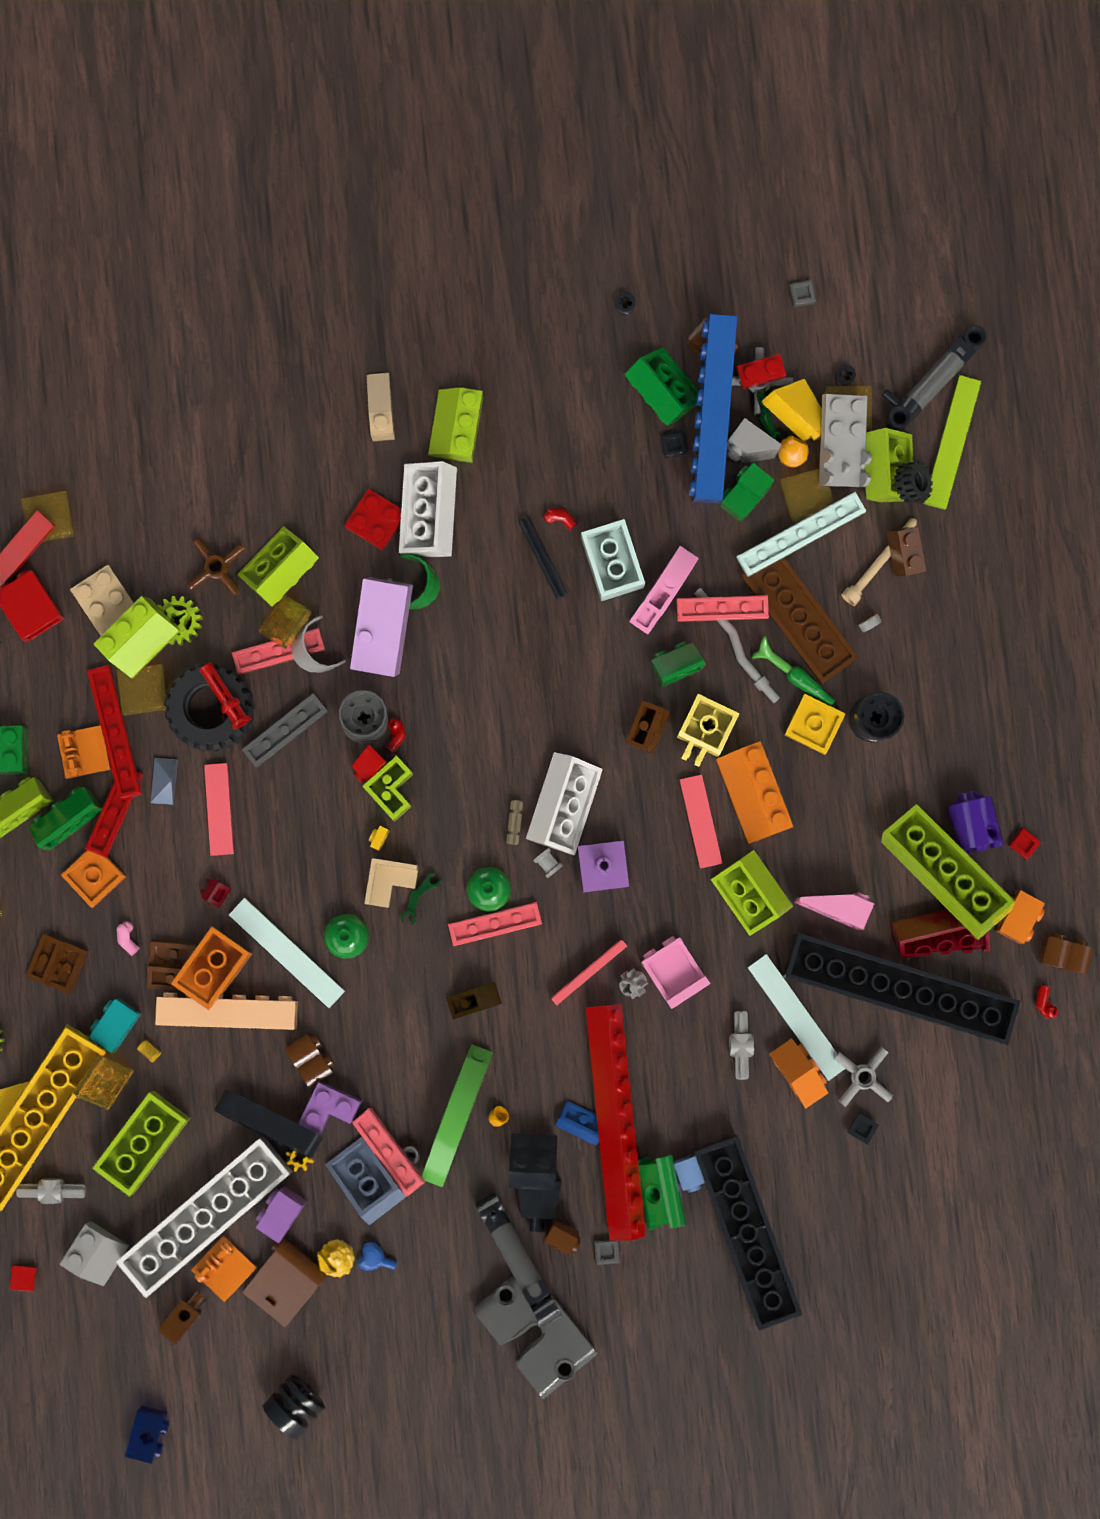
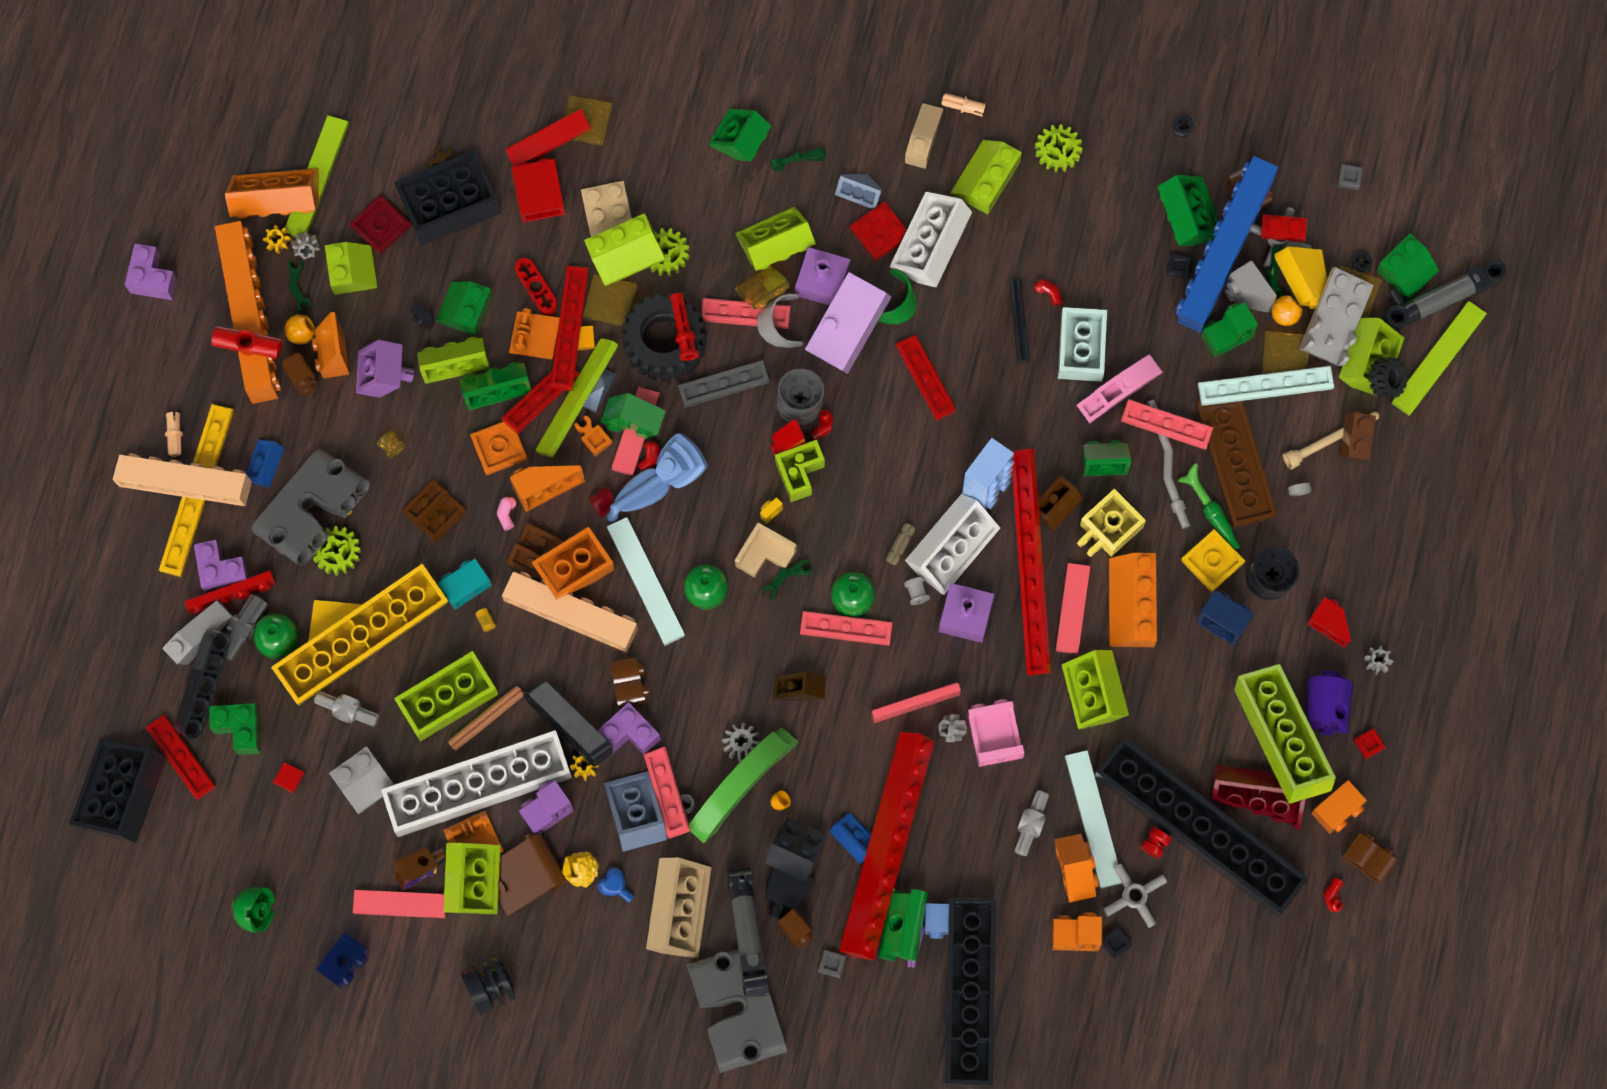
camera: 25 degrees right, 10 degrees down
(41, 1420) = (253, 907): none -> green cylinder
(56, 704) = (538, 278): none -> red beam
(103, 1082) = (434, 628): clear yellow tile -> none
(135, 735) = (586, 338): none -> light orange tile
(146, 903) = (543, 483): none -> orange slope
(149, 801) = (576, 399): none -> lime tile
(178, 1357) = (398, 904): none -> coral tile
(182, 832) = (594, 438): none -> orange plate
(188, 1146) = (486, 718): none -> nougat axle
(202, 474) = (740, 134): none -> green slope
(204, 798) = (632, 413): none -> green brick
(210, 560) = (717, 210): reddish brown bar -> none
(237, 1309) = (471, 878): none -> lime slope
(244, 827) = (652, 454): none -> red arm
(272, 829) = (677, 465): none -> medium blue piece
(284, 467) = (814, 155): none -> dark green piece
(337, 587) = (821, 276): none -> medium lavender brick
(339, 485) = (859, 189): none -> sand blue slope
(407, 361) = (963, 104): none -> light nougat axle
(443, 1257) = (678, 907): none -> tan slope
(446, 1079) = (735, 737): none -> light grey gear
(475, 648) = (925, 377): none -> red tile
(507, 378) = (1051, 154): none -> lime gear
(574, 729) = (989, 474): none -> light blue brick
(645, 795) = (1030, 563): none -> red plate
(825, 1135) = (1078, 934): none -> orange brick
(847, 909) = (1171, 730): bright pink slope -> none
(848, 778) = (1225, 617): none -> dark blue brick
(863, 1018) = (1155, 843): none -> red wheel
(891, 363) = (1408, 267): none -> green slope
(947, 740) = (1331, 622): none -> red slope
(1010, 760) = (1379, 665): none -> light grey gear

